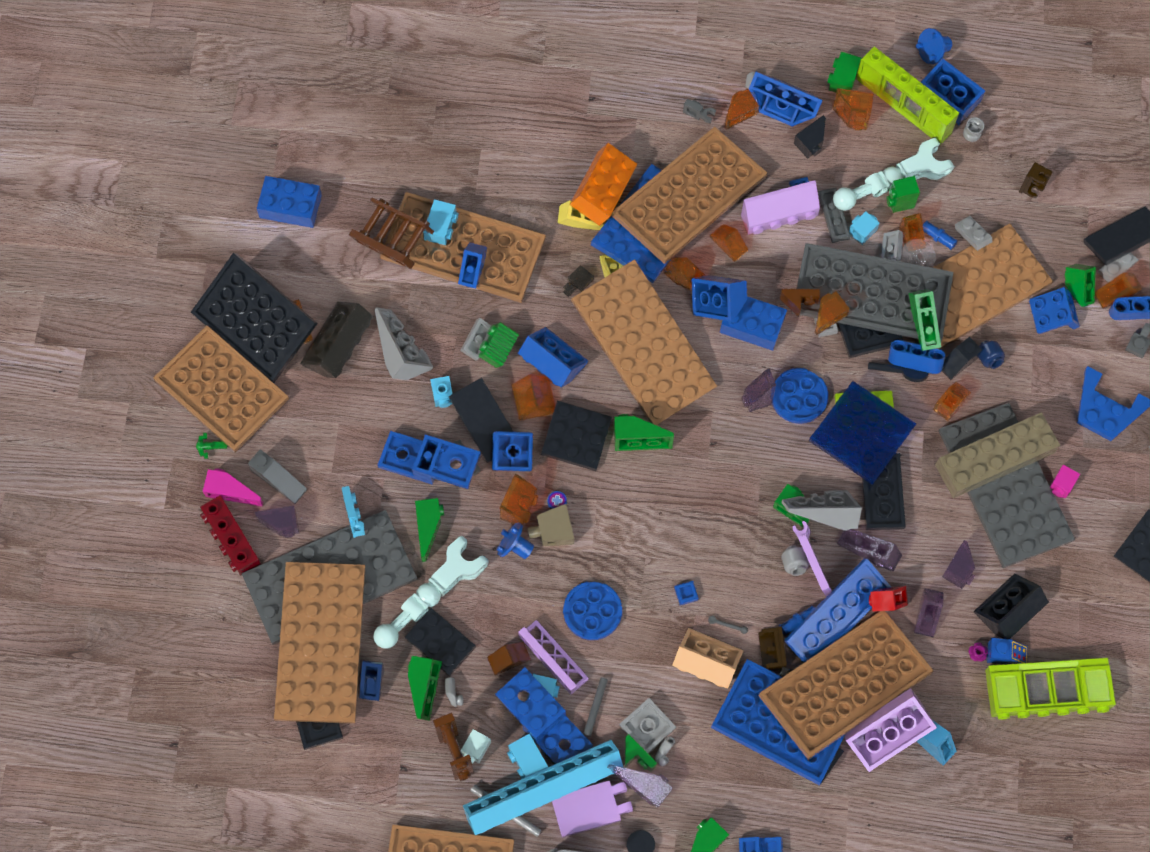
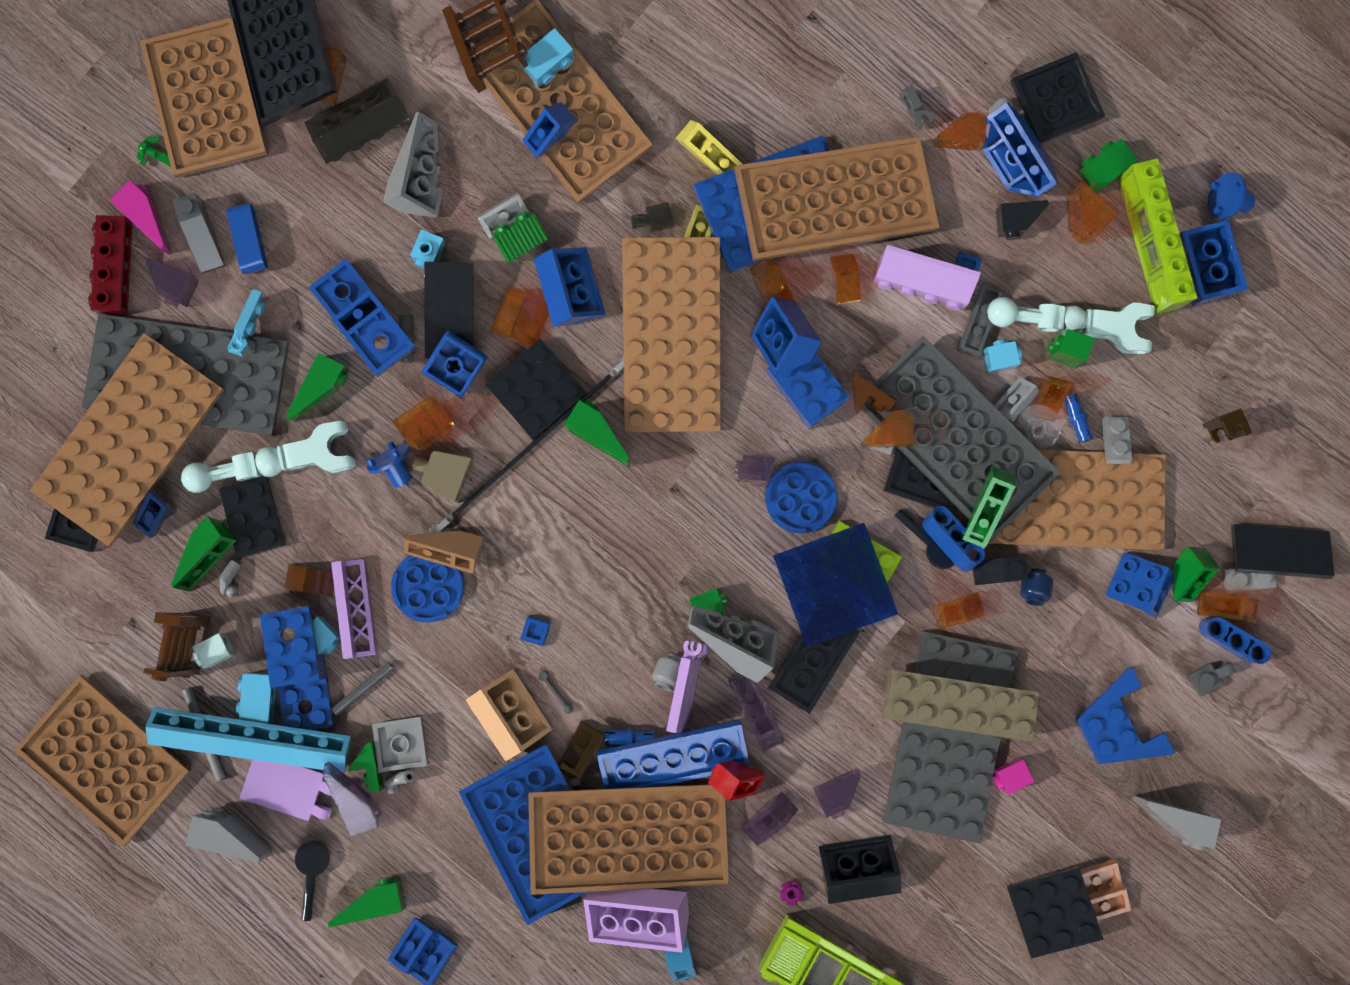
camera: 30 degrees right, 15 degrees up
(312, 460) = (247, 238): none -> blue beam
(556, 499) = (469, 446): tile -> none
(573, 567) = (447, 520): none -> black piece
(590, 573) = (451, 548): none -> medium nougat slope
(603, 184) = (750, 127): orange brick -> none
(783, 52) = (1057, 98): none -> black plate
(973, 129) = (1209, 320): light grey wheel -> none
(1006, 652) = (820, 914): blue slope -> none

